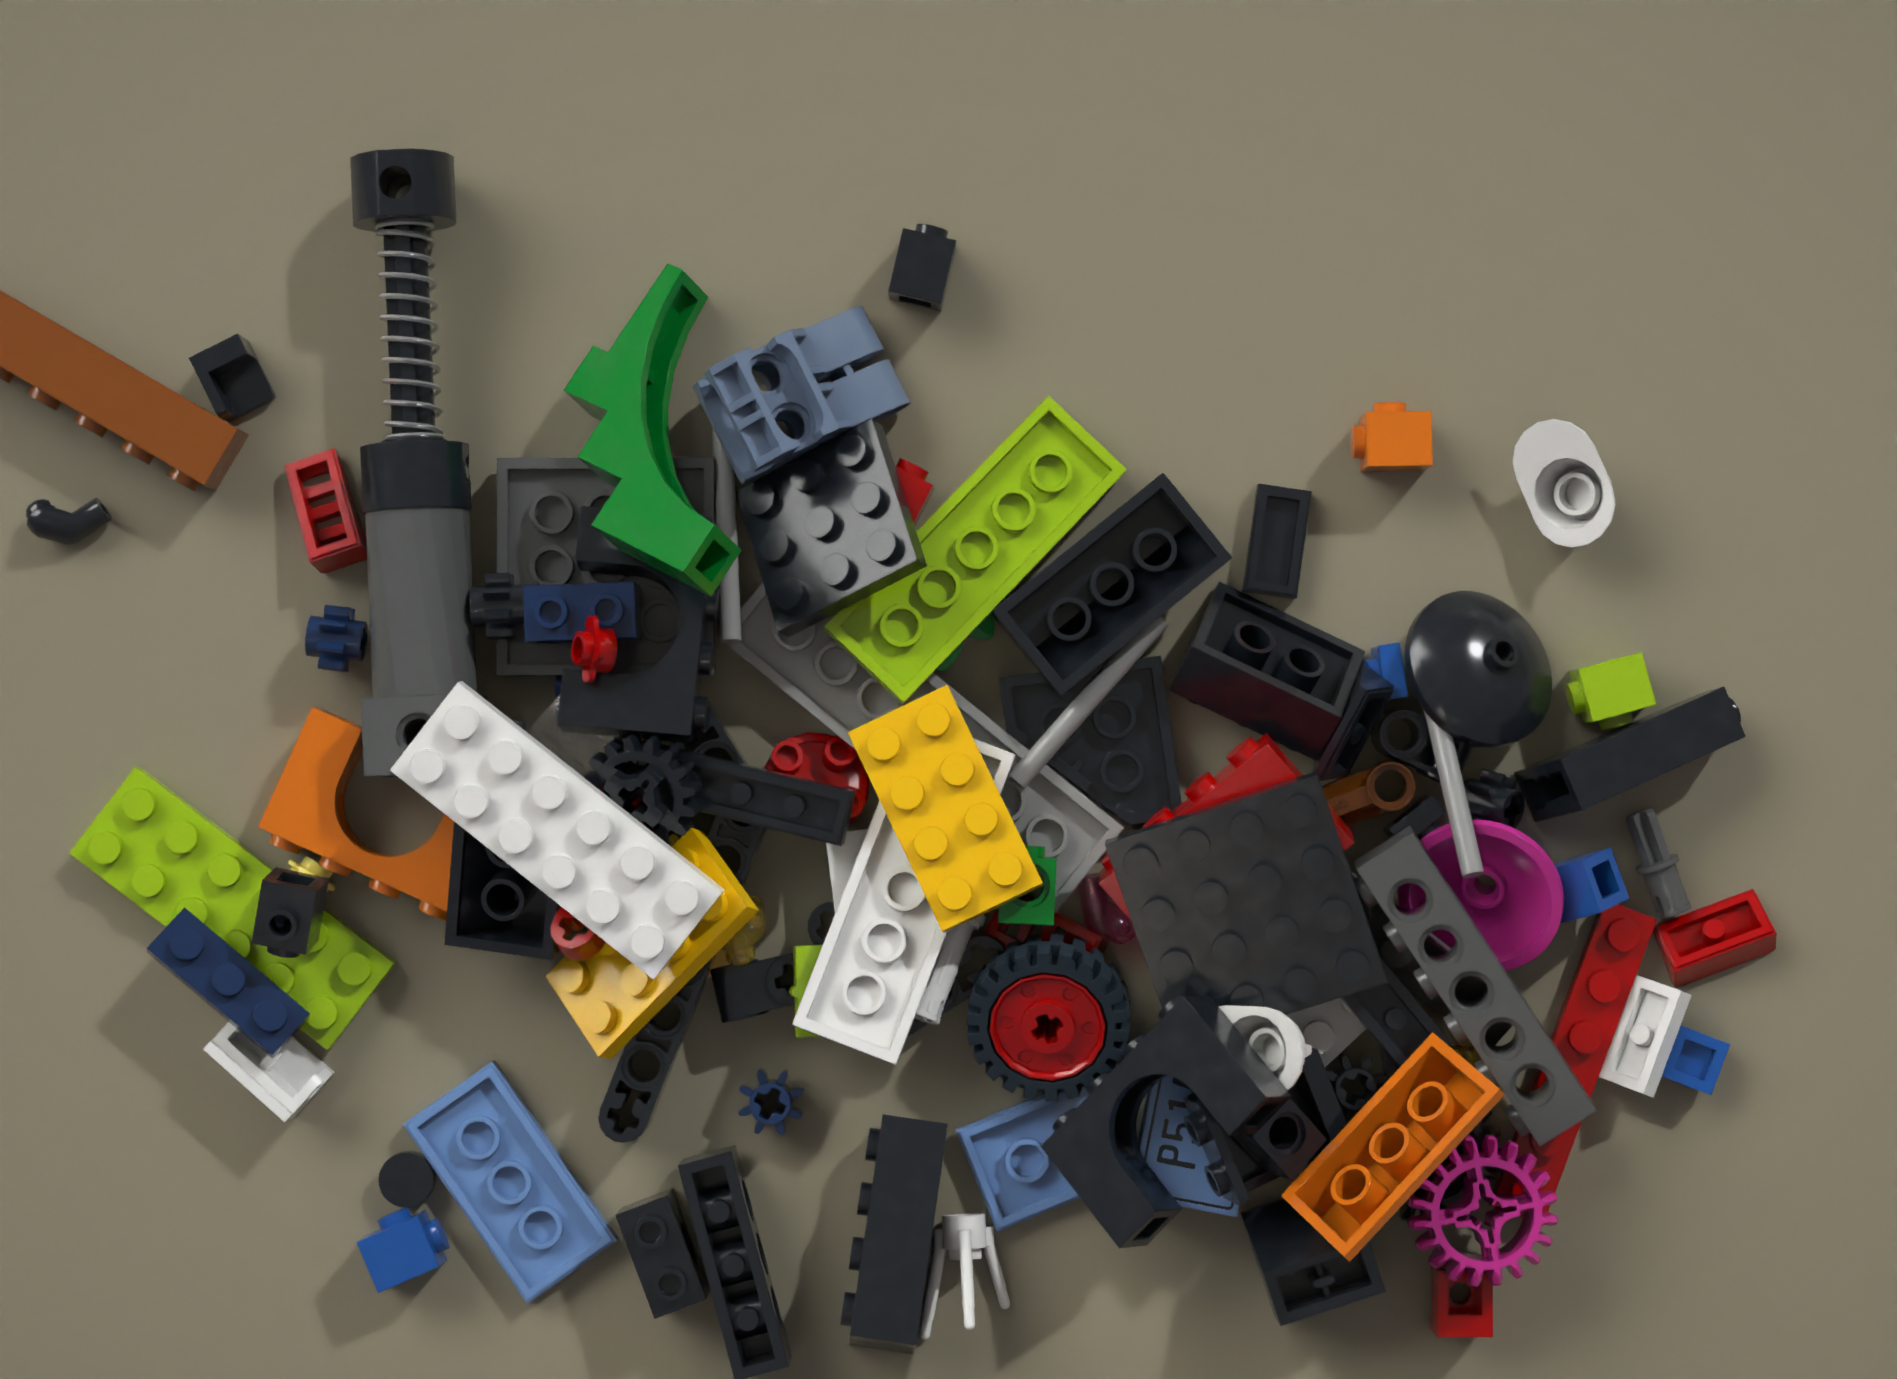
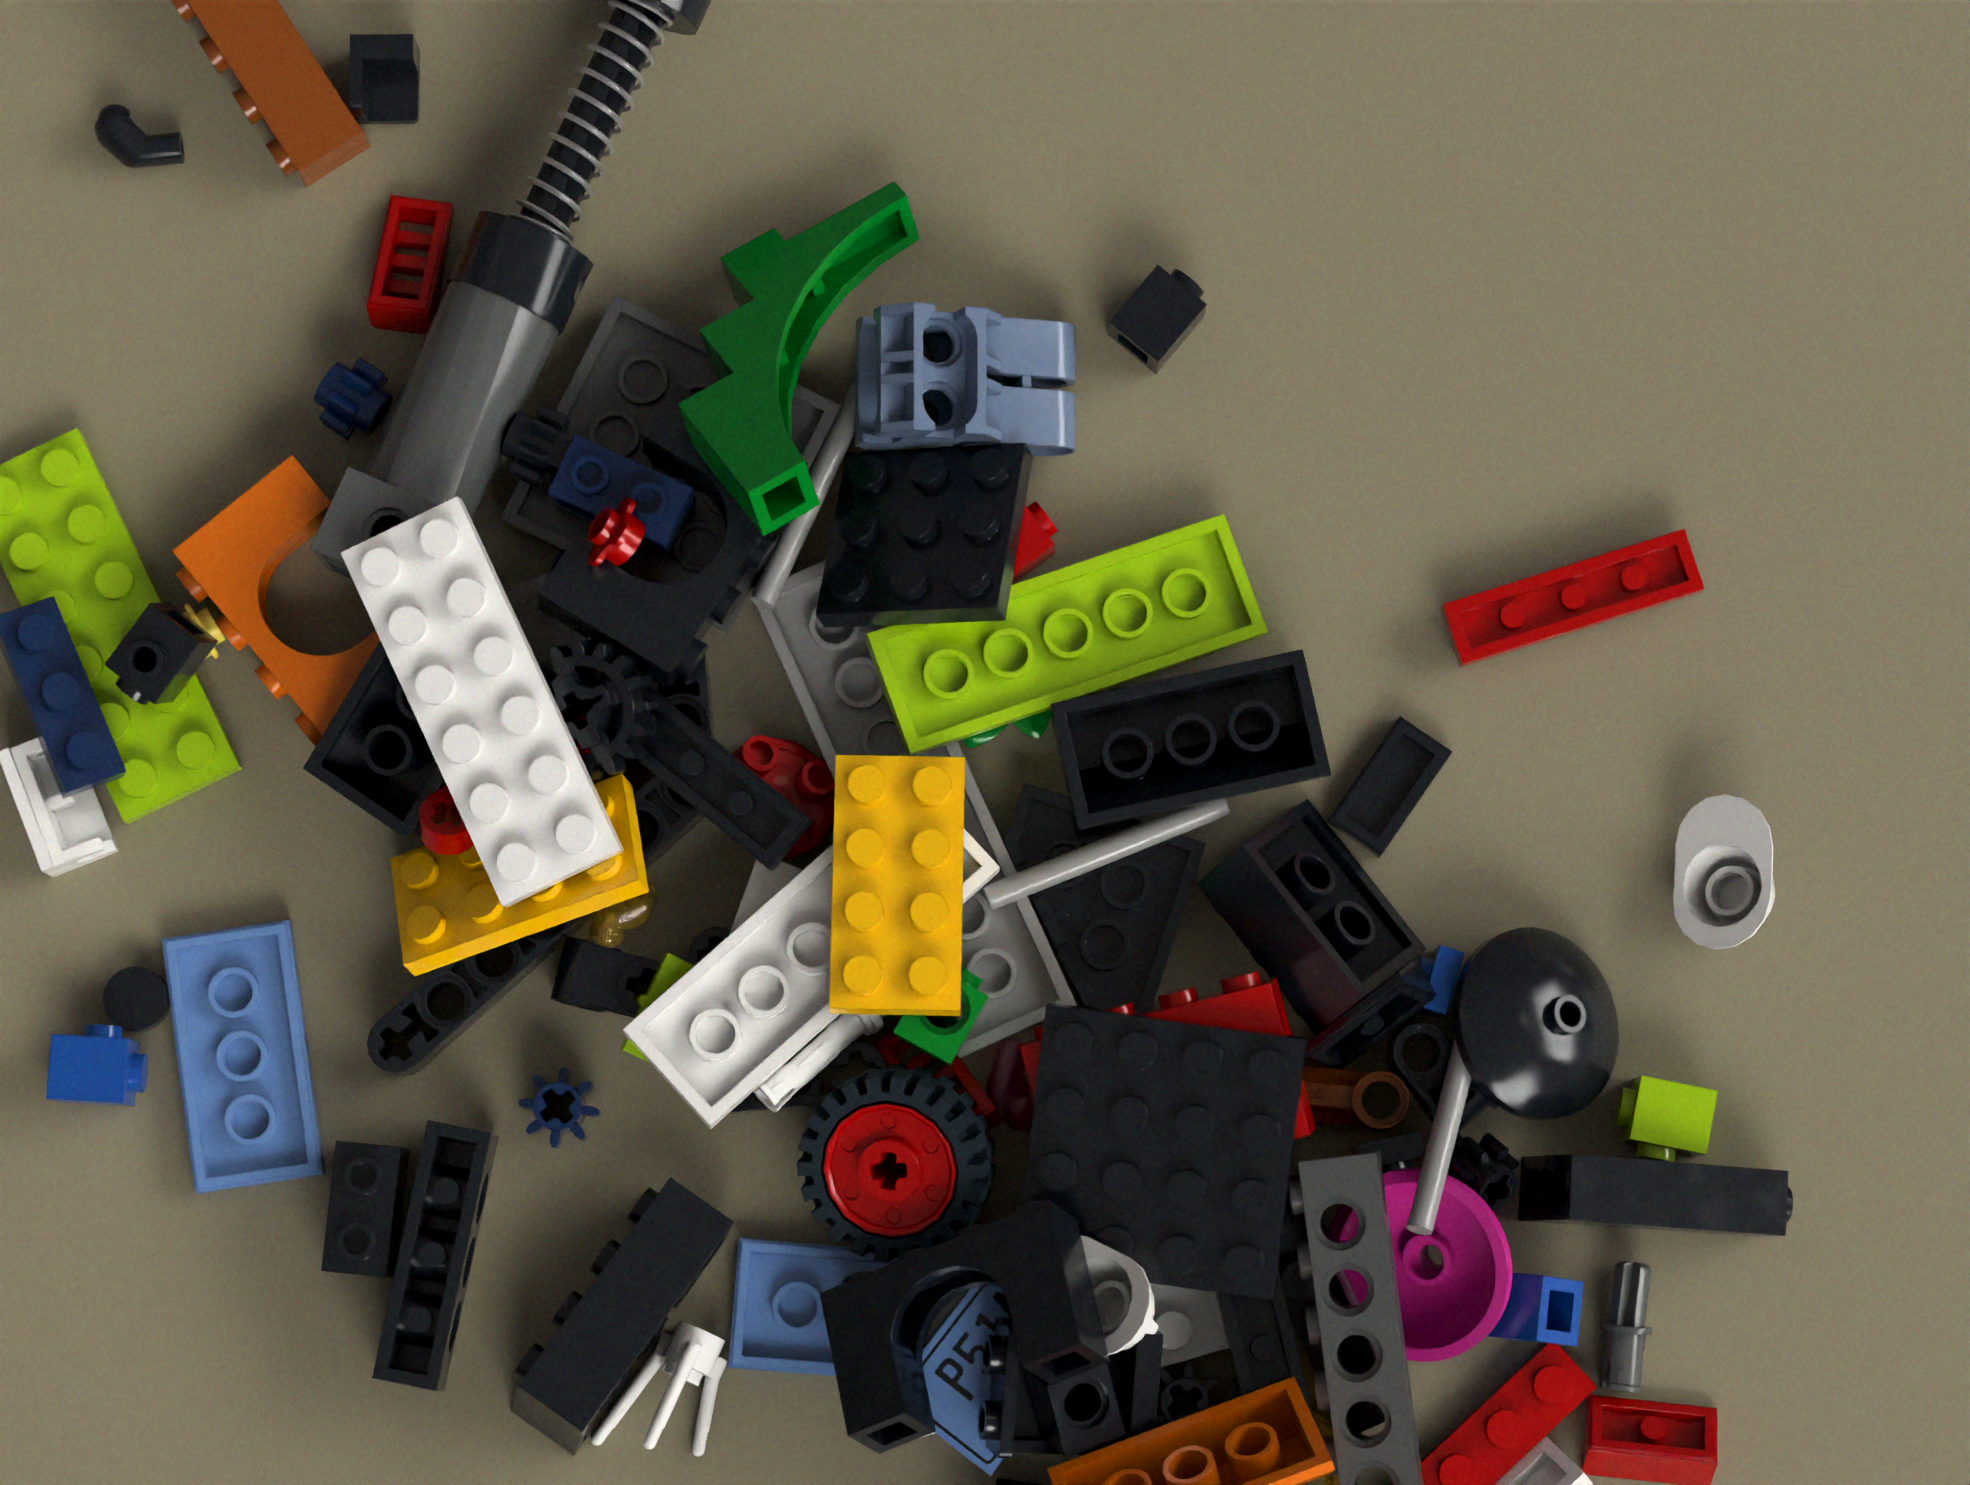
camera: 25 degrees right, 5 degrees down
(1345, 327) = (1572, 598): none -> red plate
(1393, 439) = (1564, 739): orange brick -> none

